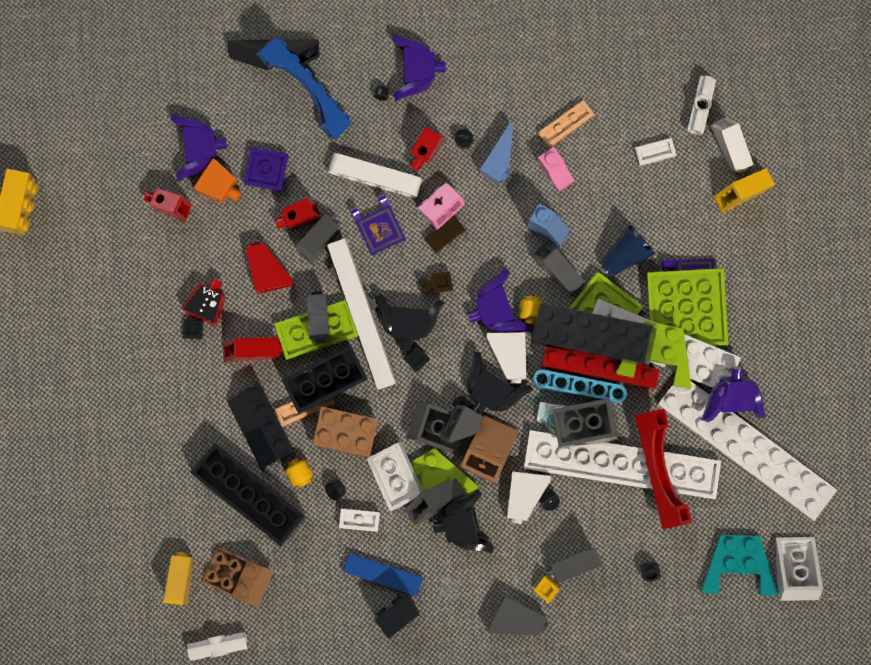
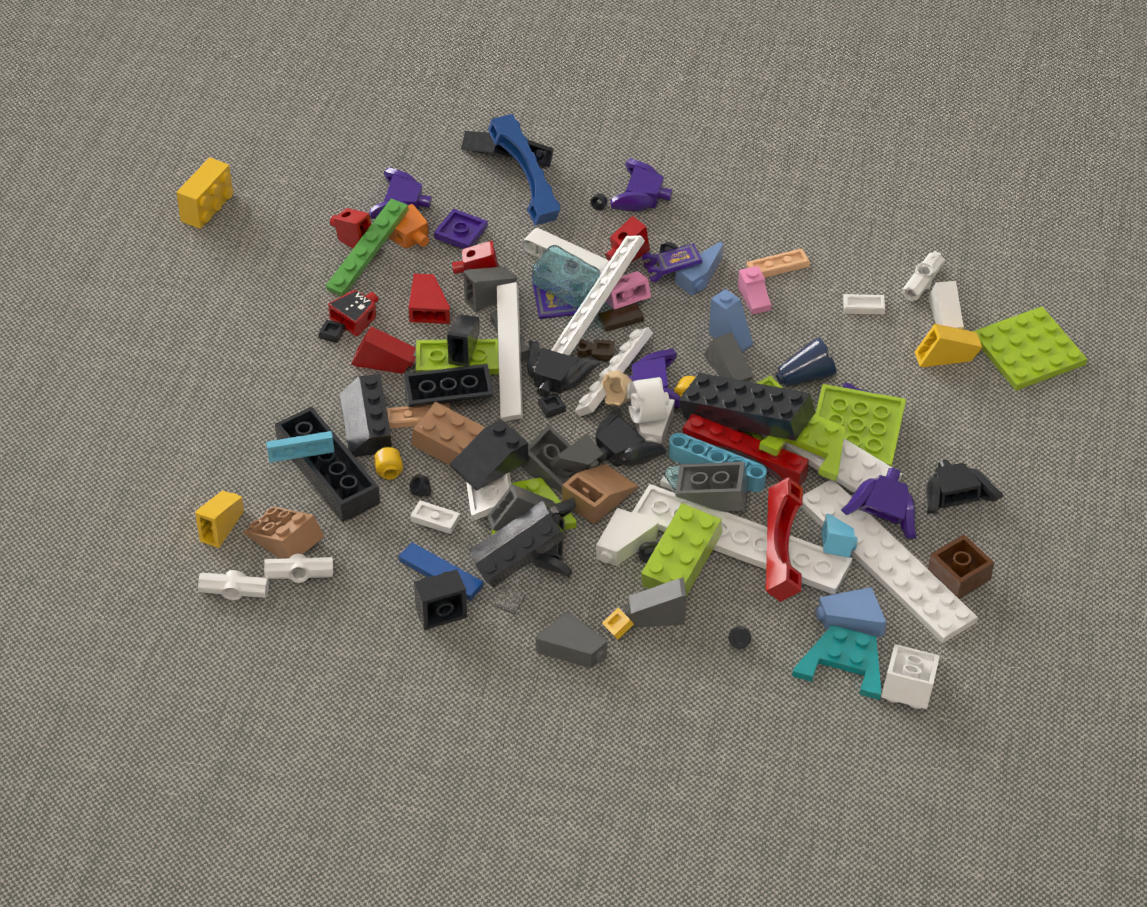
camera: 15 degrees right, 35 degrees down
(191, 224) = (367, 247): none -> bright green plate
(223, 499) = (300, 446): none -> medium azure plate
(265, 614) = (307, 568): none -> white piece
(382, 216) = (564, 275): none -> clear light blue axle
(389, 458) = (491, 455): none -> black slope
(420, 230) = (598, 295): none -> white tile
(442, 544) = (517, 544): none -> black slope
(460, 306) = (619, 362): none -> white plate
(473, 338) = (616, 386): none -> tan hair
(475, 156) = (672, 260): none -> dark purple flag
(506, 354) = (647, 400): none -> white brick
(580, 504) = (683, 548): none -> lime brick
(703, 444) = (837, 537): none -> medium azure slope
(735, 517) = (852, 610): none -> medium blue slope
(786, 352) = (958, 485): none -> black torso
(812, 162) = (1030, 348): none -> lime plate
(813, 445) = (961, 566): none -> reddish brown brick

